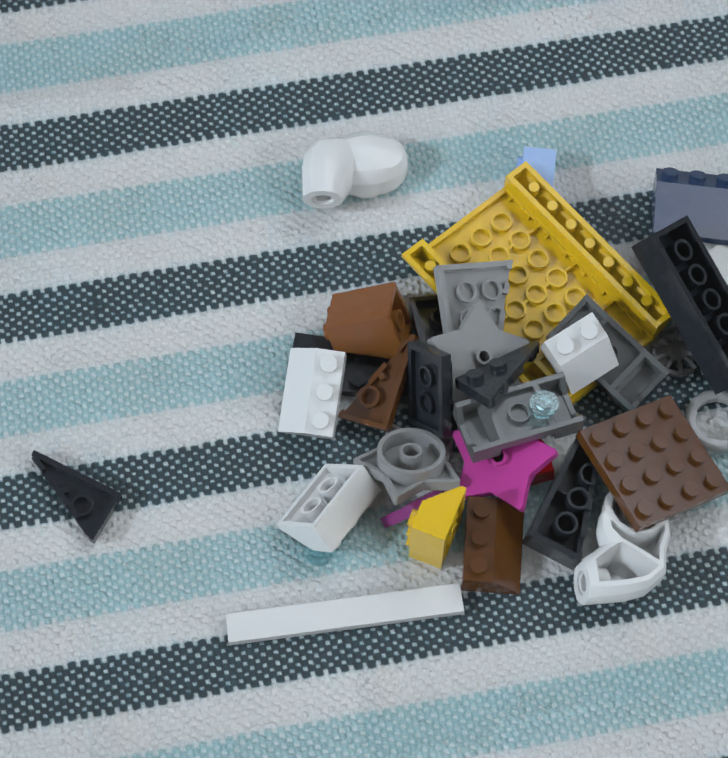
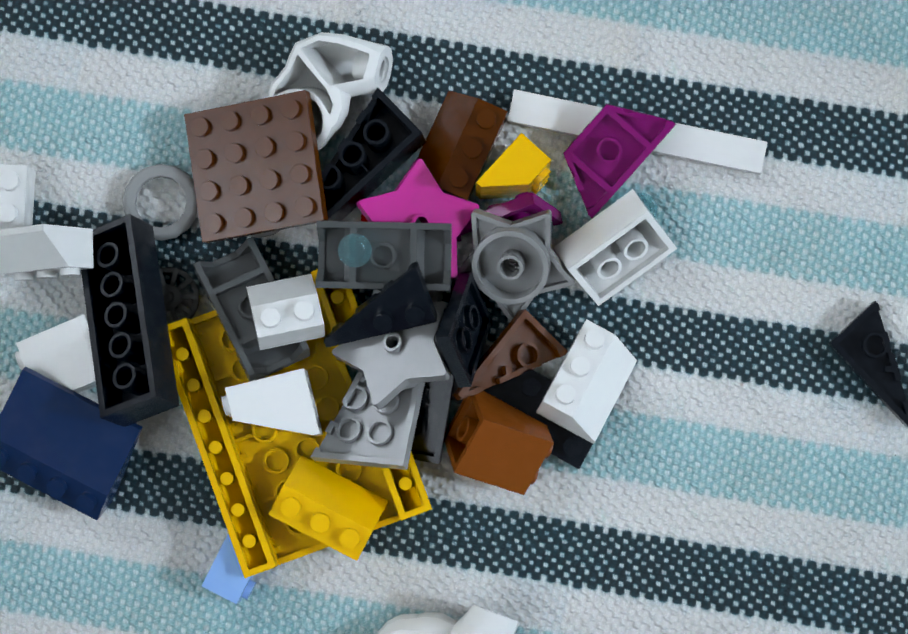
camera: 155 degrees left, 20 degrees up
(360, 584) = (611, 151): none -> magenta wing
(482, 230) = (328, 507): none -> yellow slope
(554, 284) = (276, 403): none -> white slope

